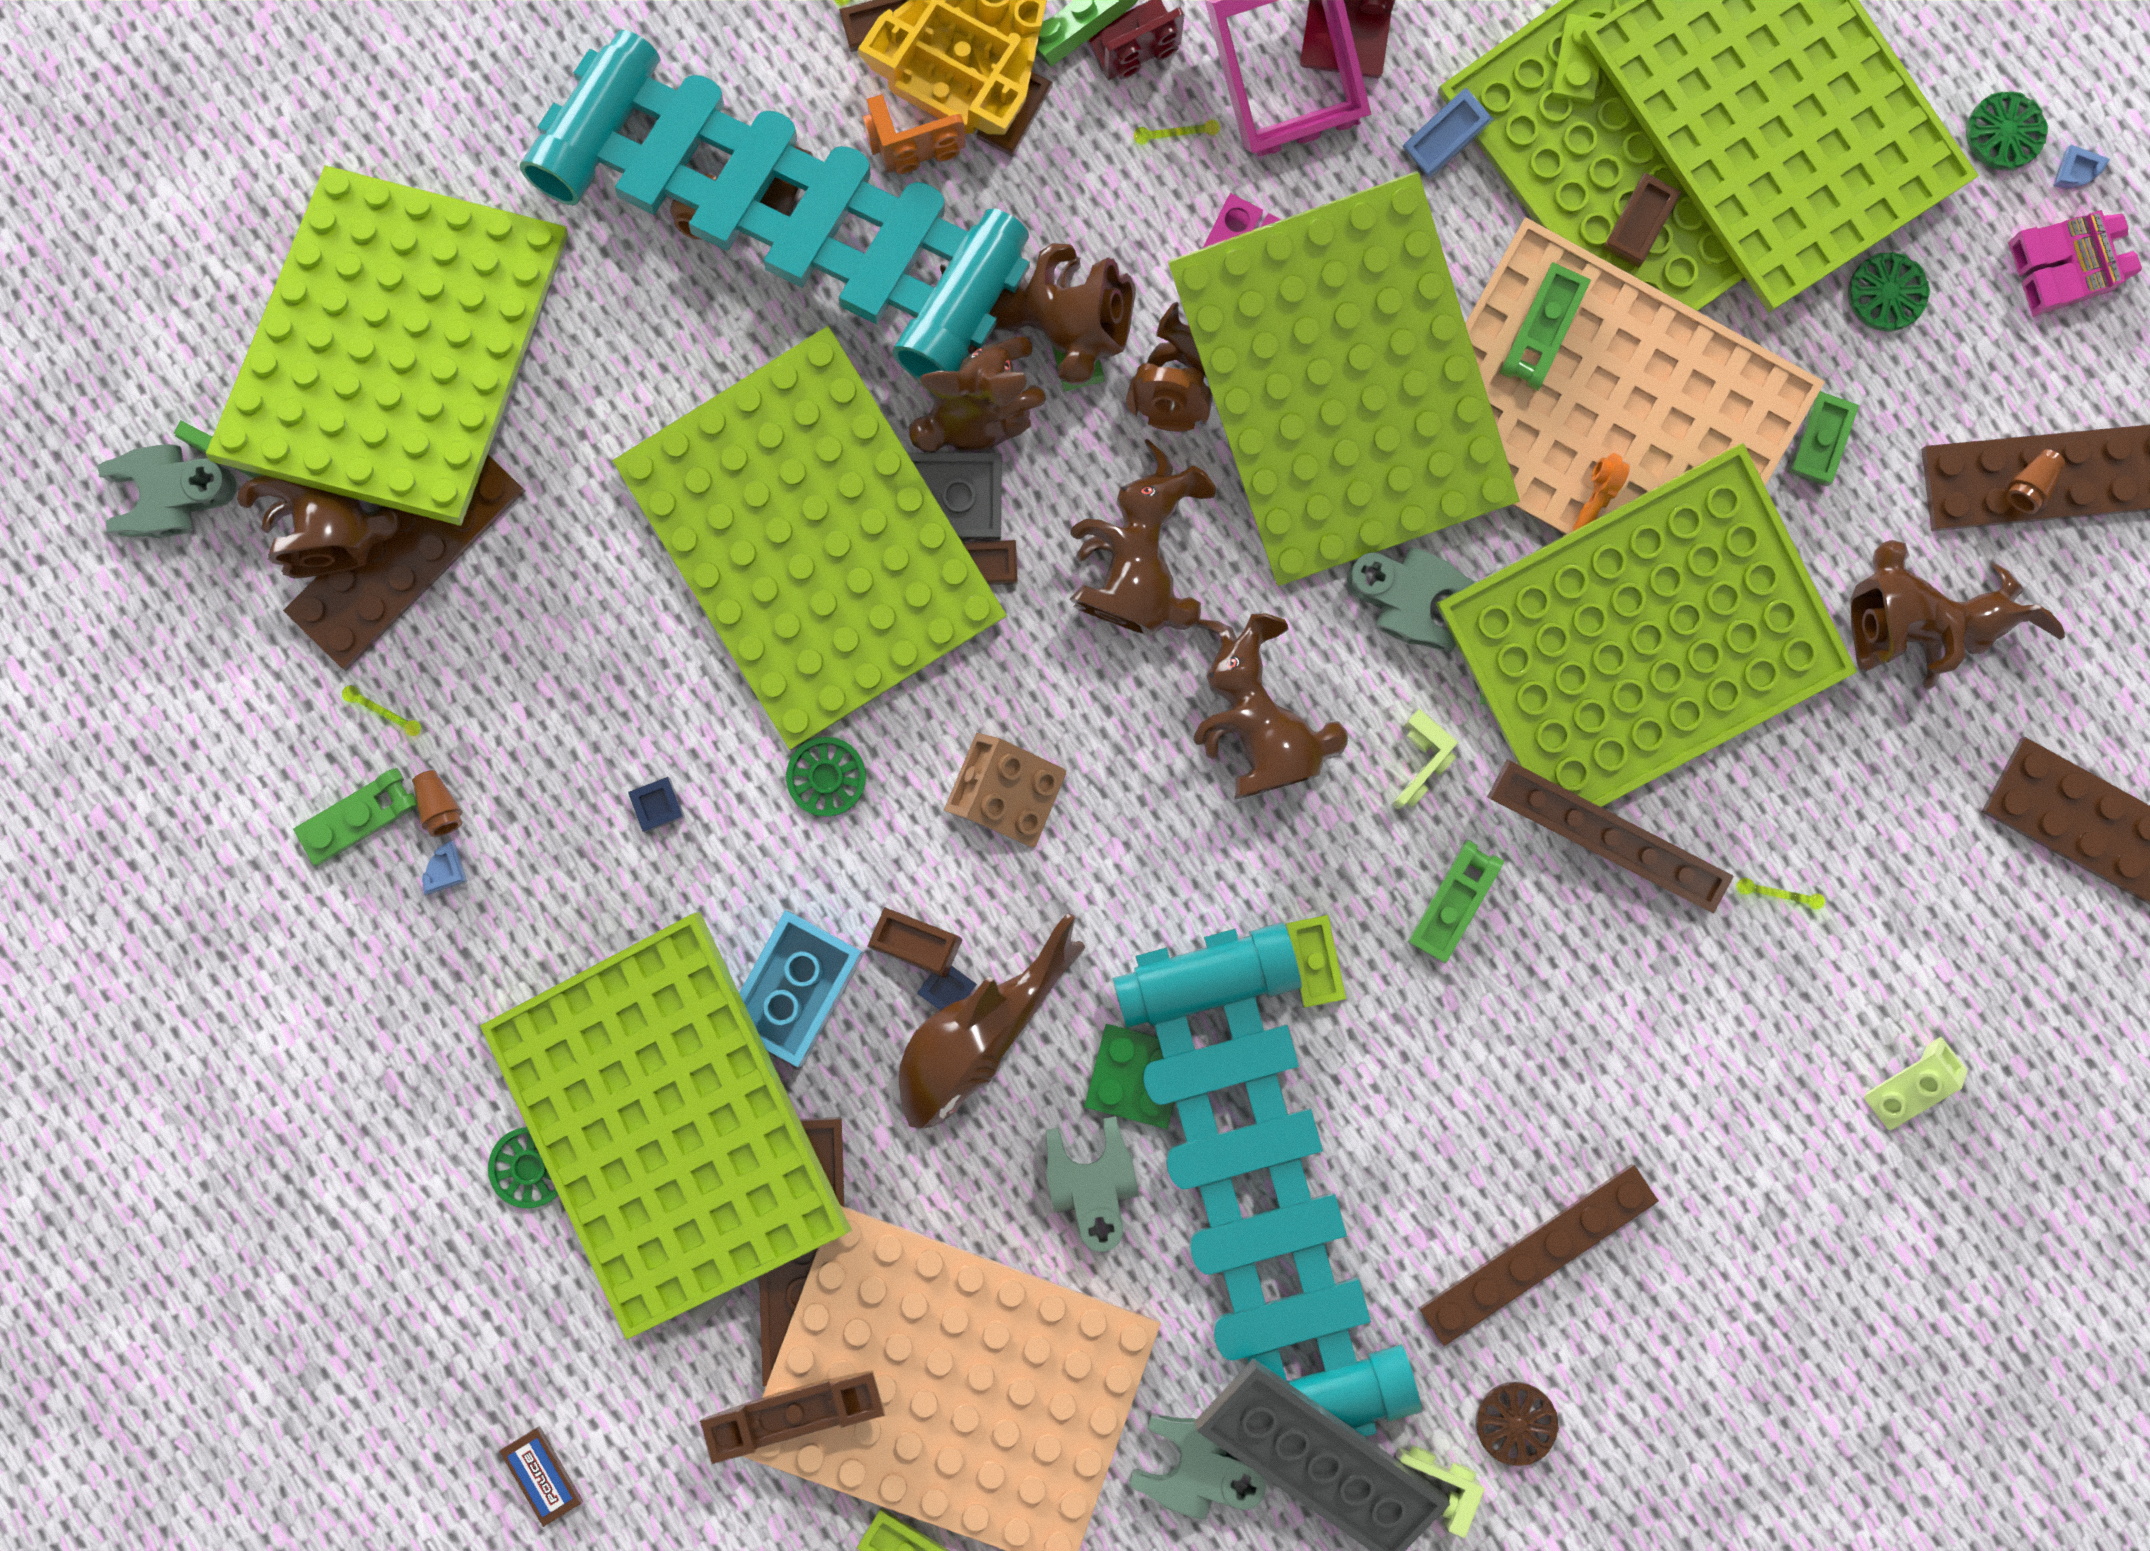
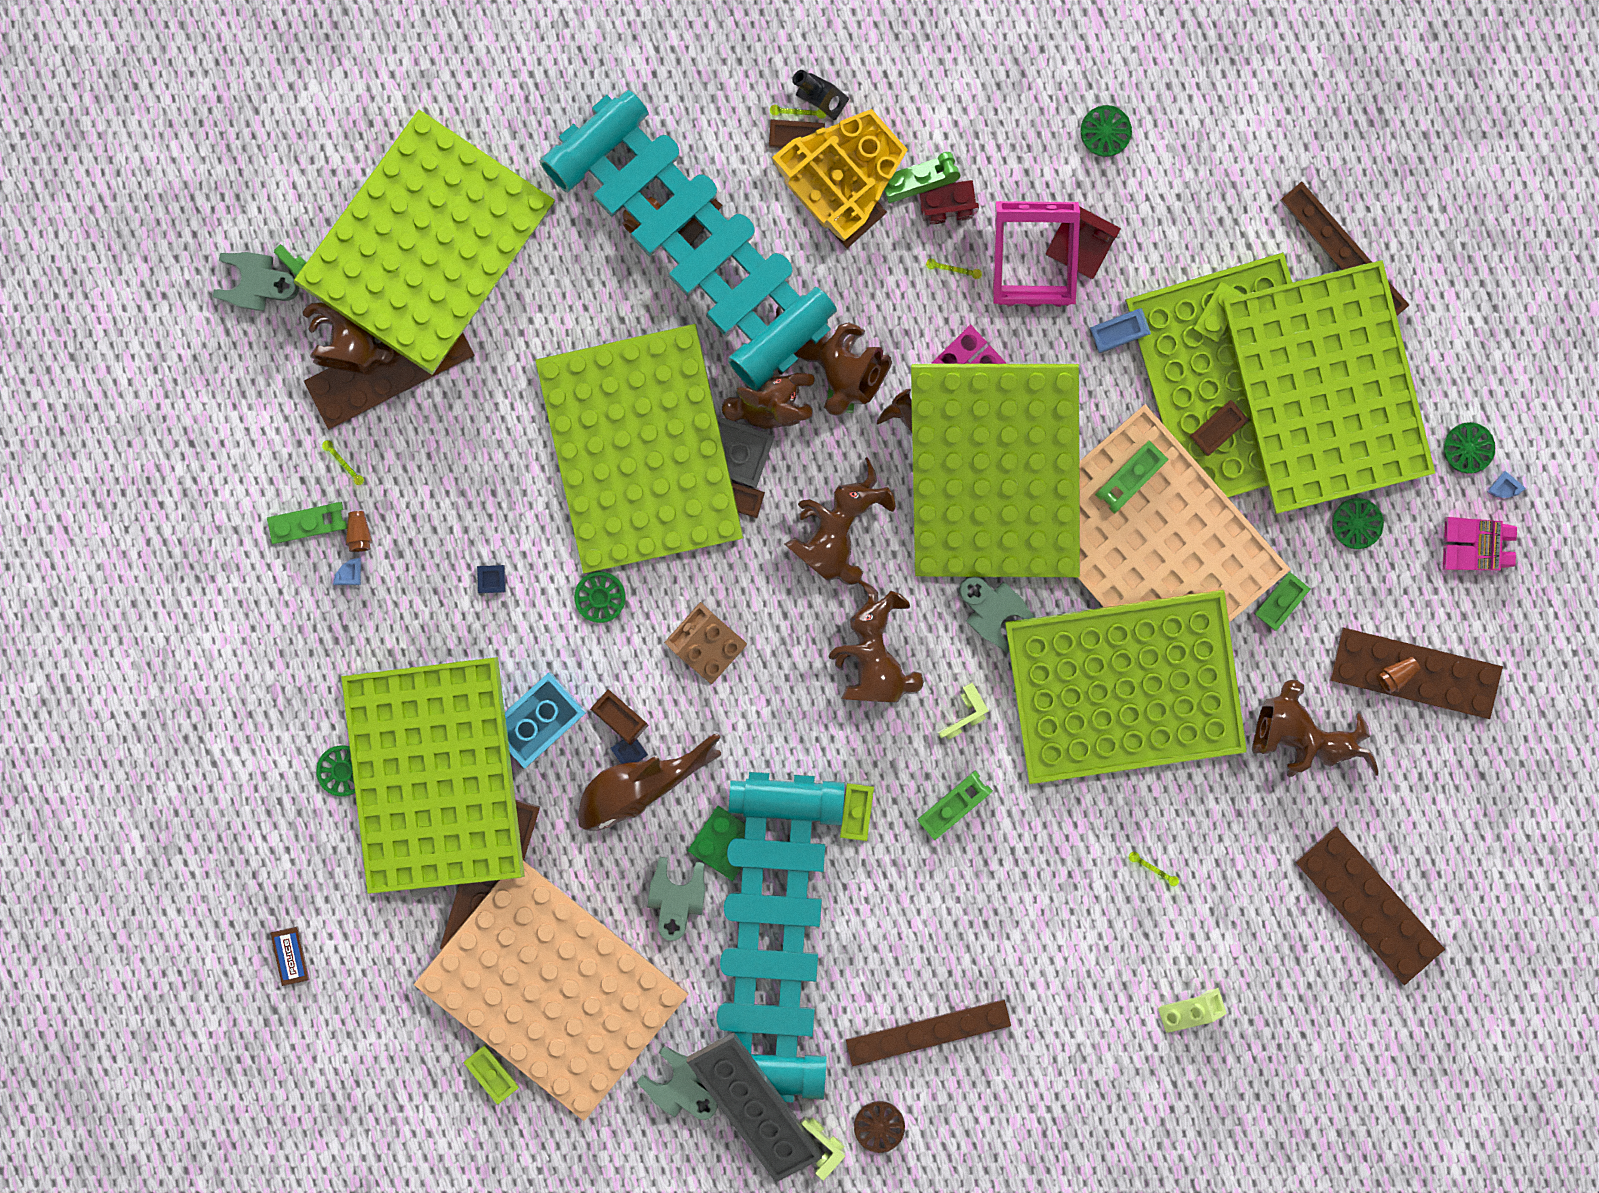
camera: 20 degrees right, 5 degrees up
(791, 1414) = (453, 971): reddish brown slope -> none
(908, 148) = (768, 213): orange bracket -> none
(1185, 388) = (888, 439): dark orange plate -> none
(1609, 478) = (1138, 582): orange plate -> none
(1610, 836) = (1060, 799): reddish brown plate -> none

